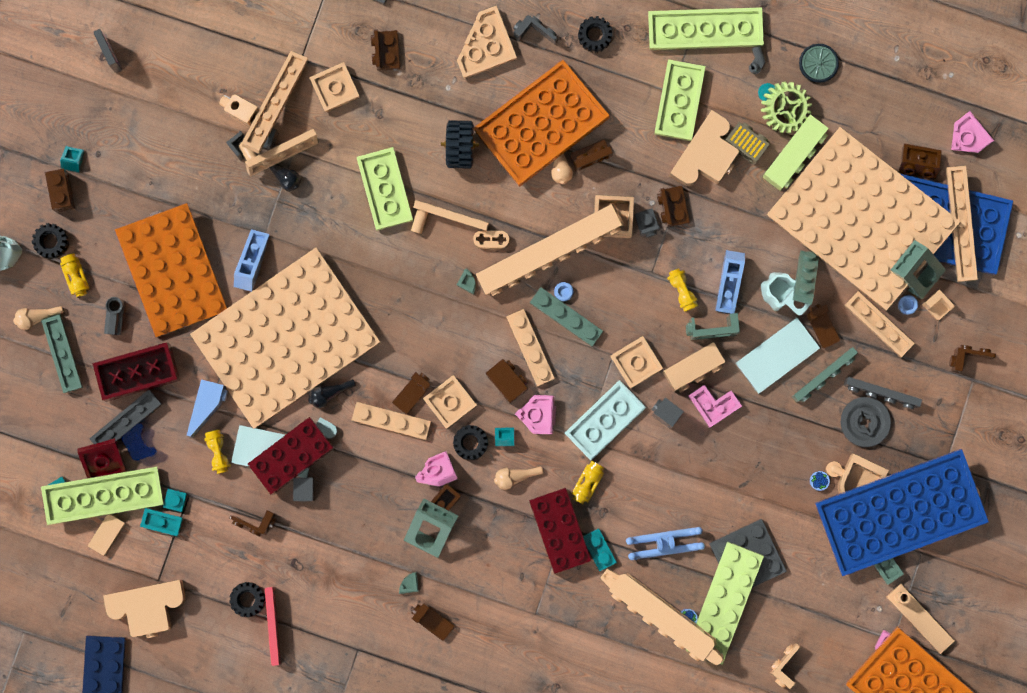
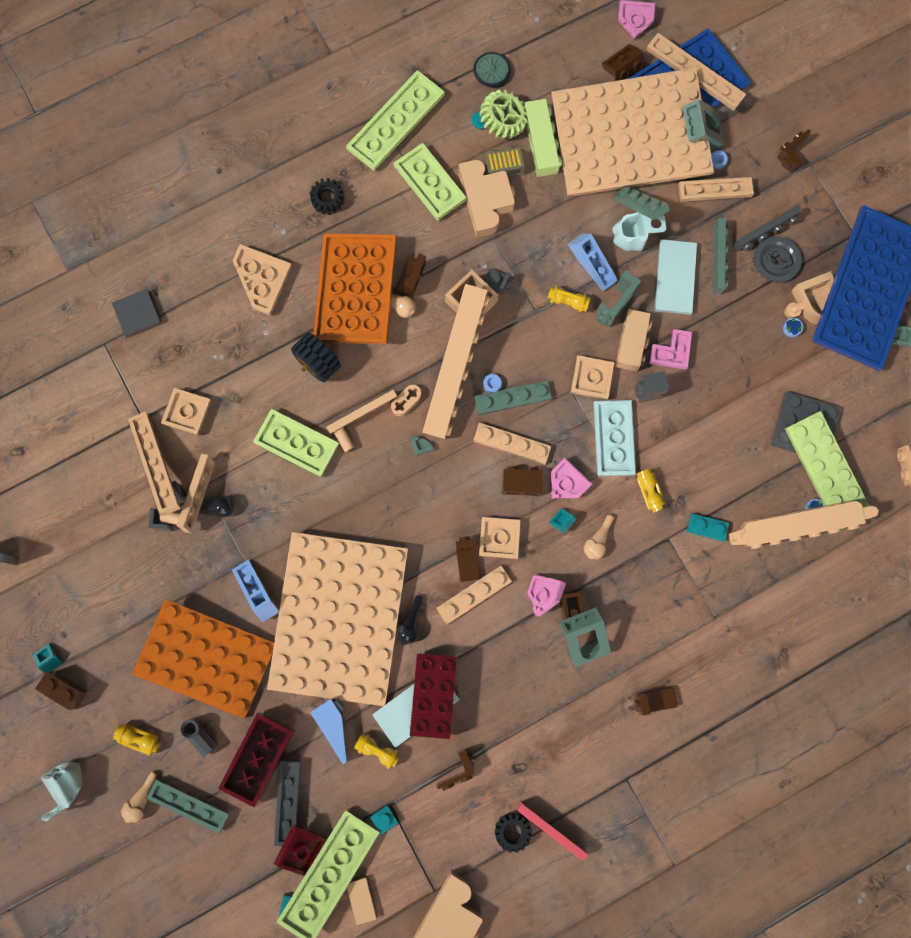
camera: 55 degrees left, 5 degrees down
(42, 232) = (80, 734): black tyre -> none
(136, 445) = (313, 811): clear blue piece -> none
(161, 522) = (391, 846): teal plate -> none
(239, 109) = (134, 495): light nougat torso -> none
(303, 489) = (467, 709): dark grey panel -> none
(327, 428) = (435, 648): light aqua tile -> none
(386, 50) = (195, 350): reddish brown bracket -> none
(409, 584) = (610, 693): sand green tile -> none
(478, 451) = (555, 550): black tyre -> none
(523, 26) = (283, 229): dark grey bracket -> none
(559, 530) = (670, 543): dark red brick -> none
(665, 543) = (745, 474): light blue piece -> none
(673, 206) = (502, 253): reddish brown bracket -> none
(759, 61) = (453, 107): dark grey arm -> none
(822, 325) = (681, 227): reddish brown bracket -> none
(938, 305) = (737, 138): light nougat panel -> none

